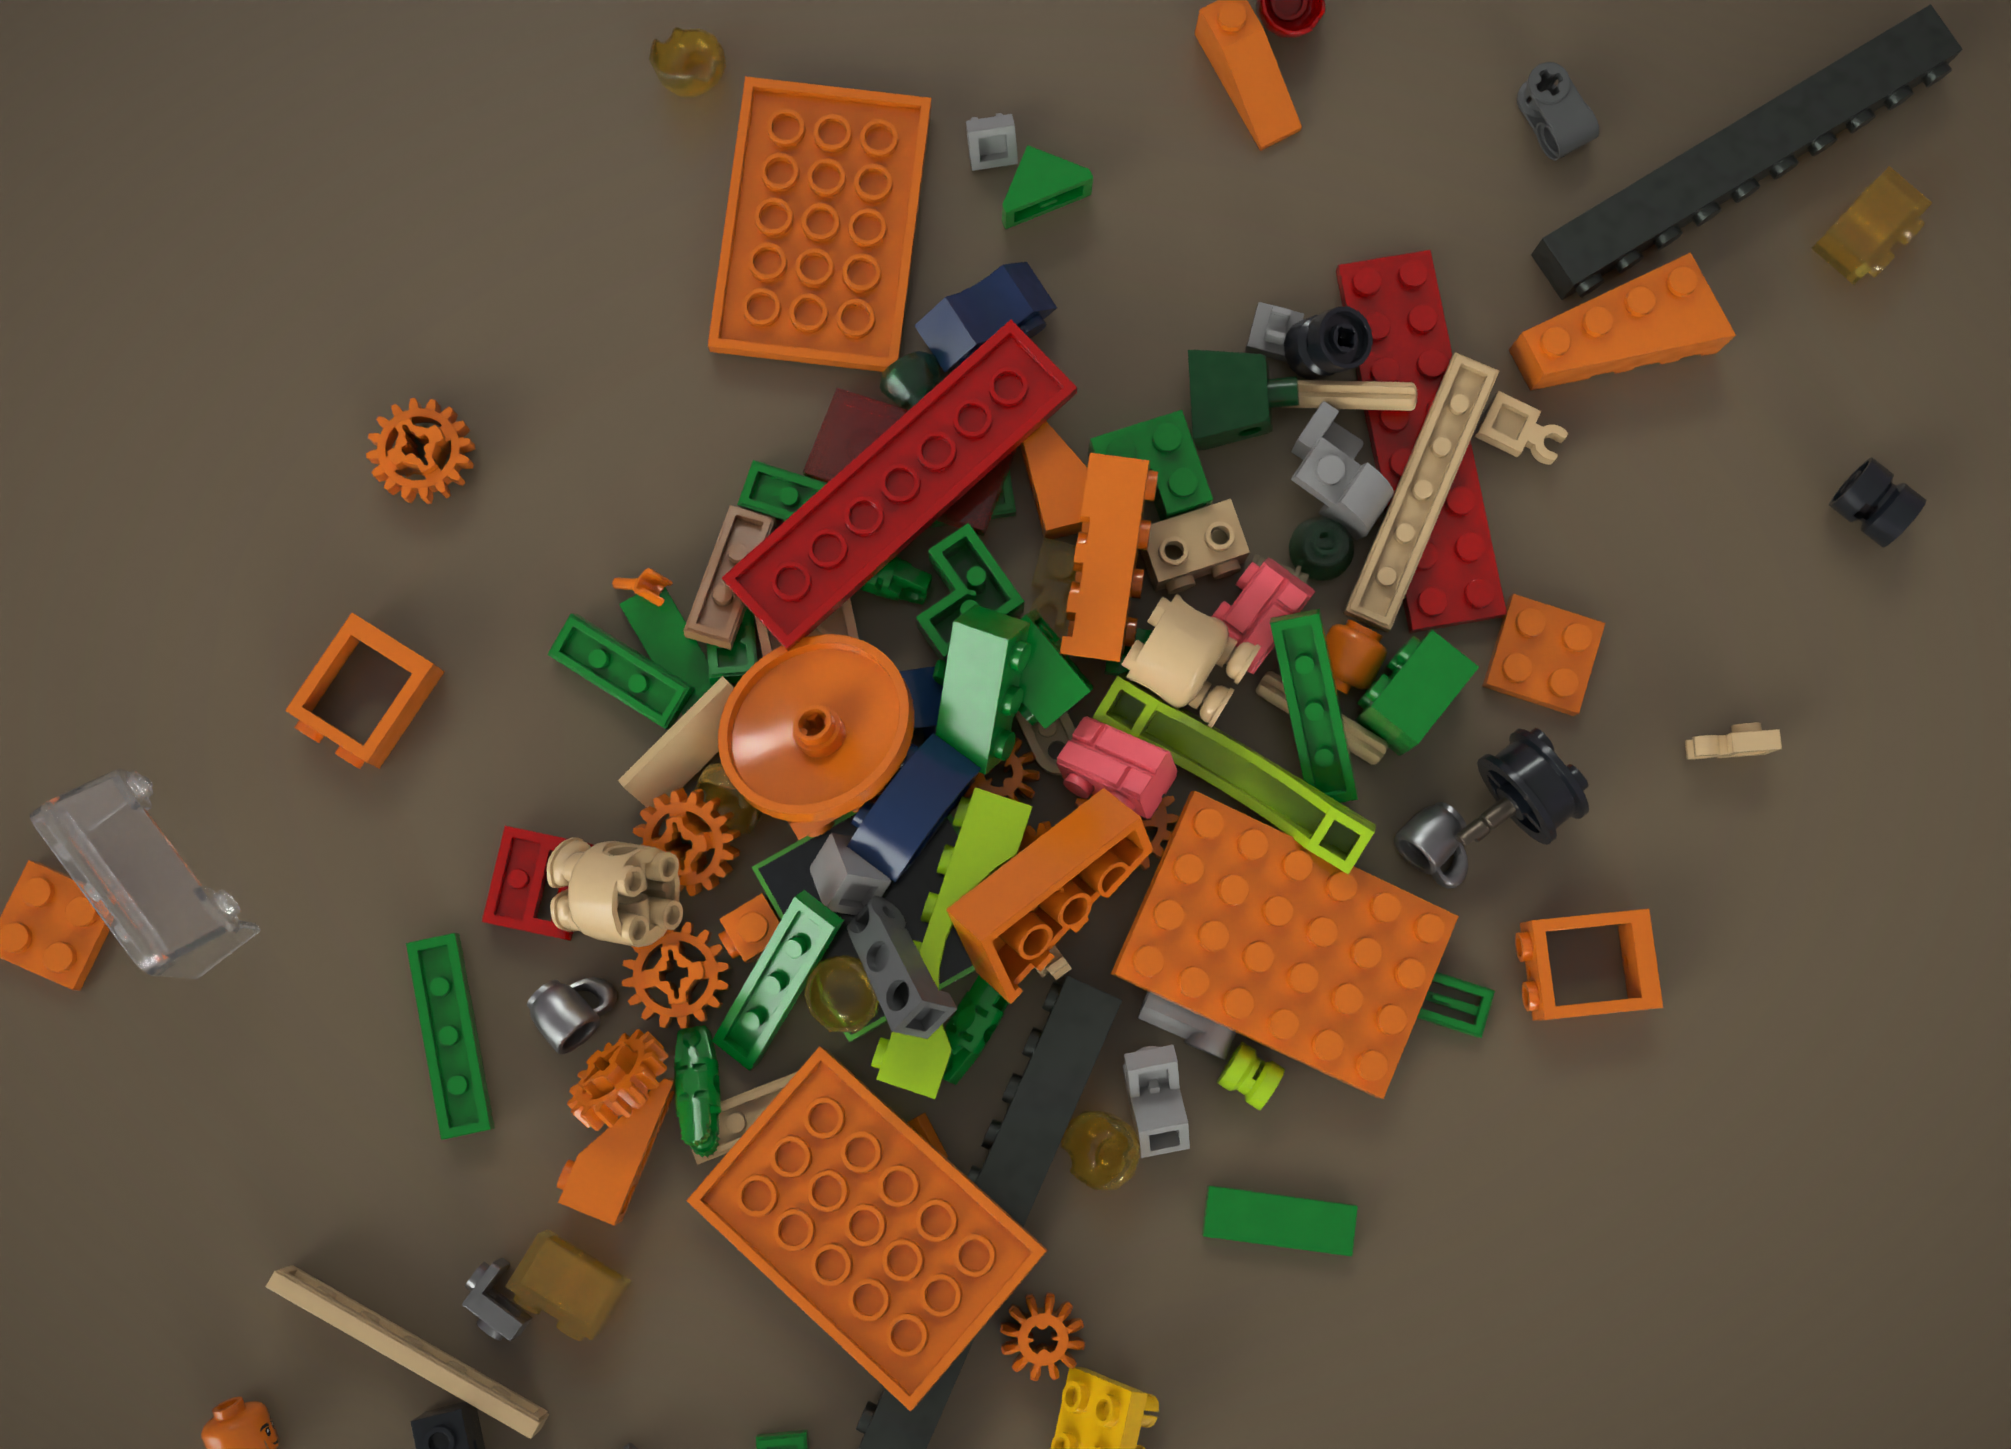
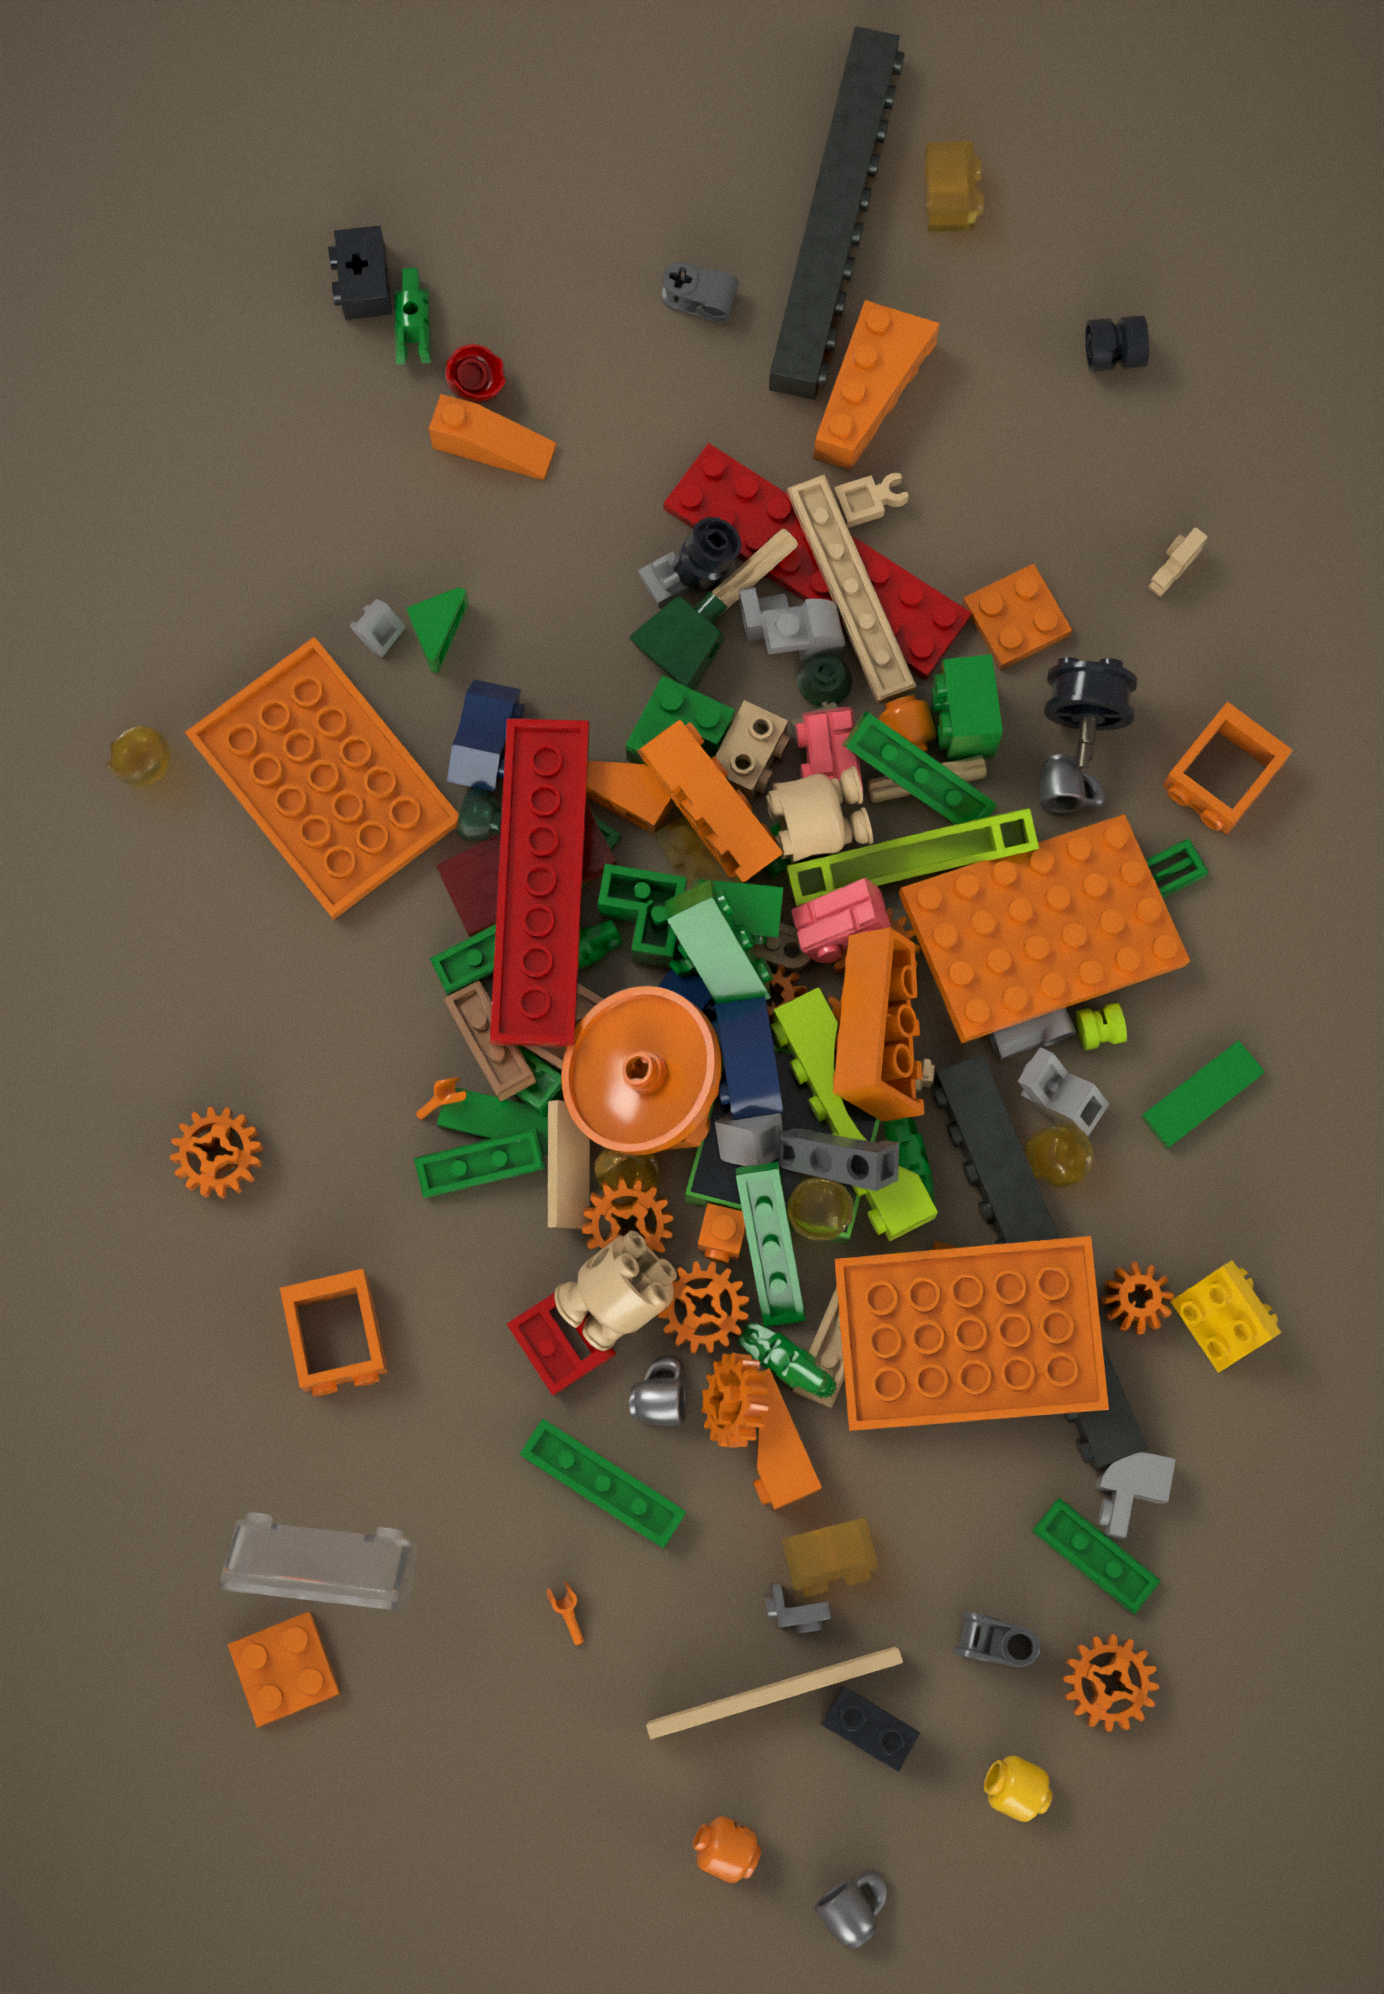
camera: 40 degrees left, 5 degrees down
(318, 1105) = (566, 1608): none -> orange hand

